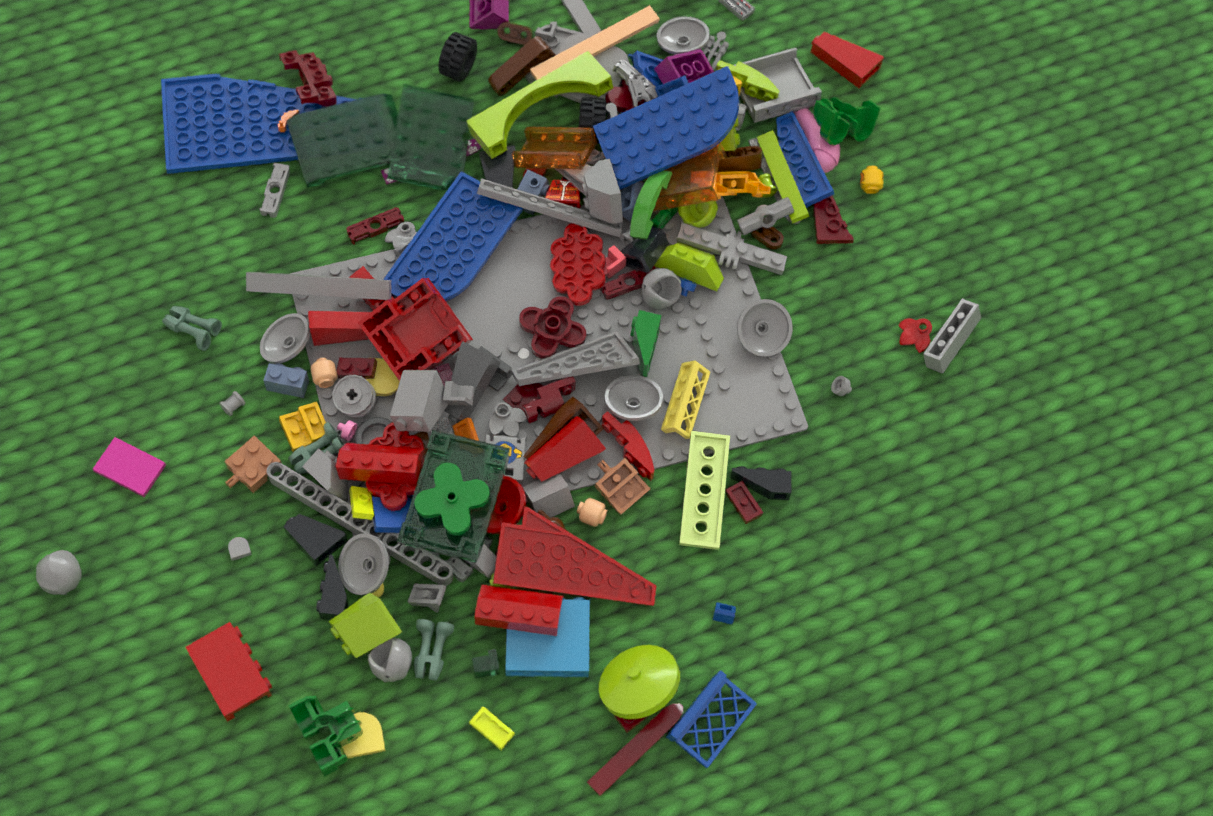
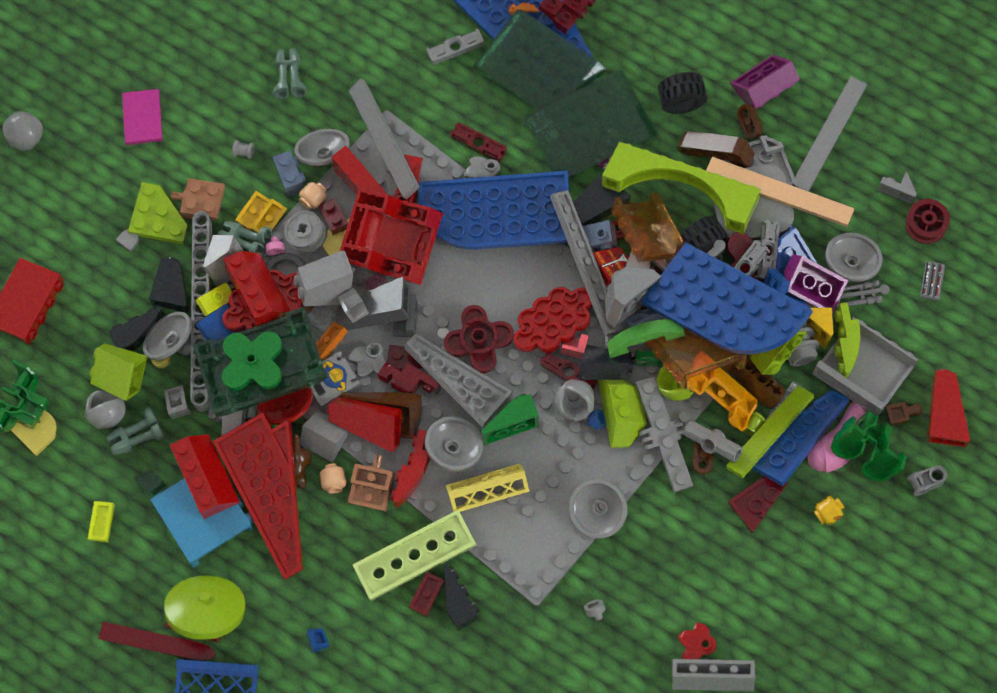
camera: 65 degrees right, 5 degrees up
(236, 511) = (156, 216): none -> lime plate
(828, 86) = (899, 413): none -> reddish brown plate
(891, 105) = (923, 481): none -> light grey piece

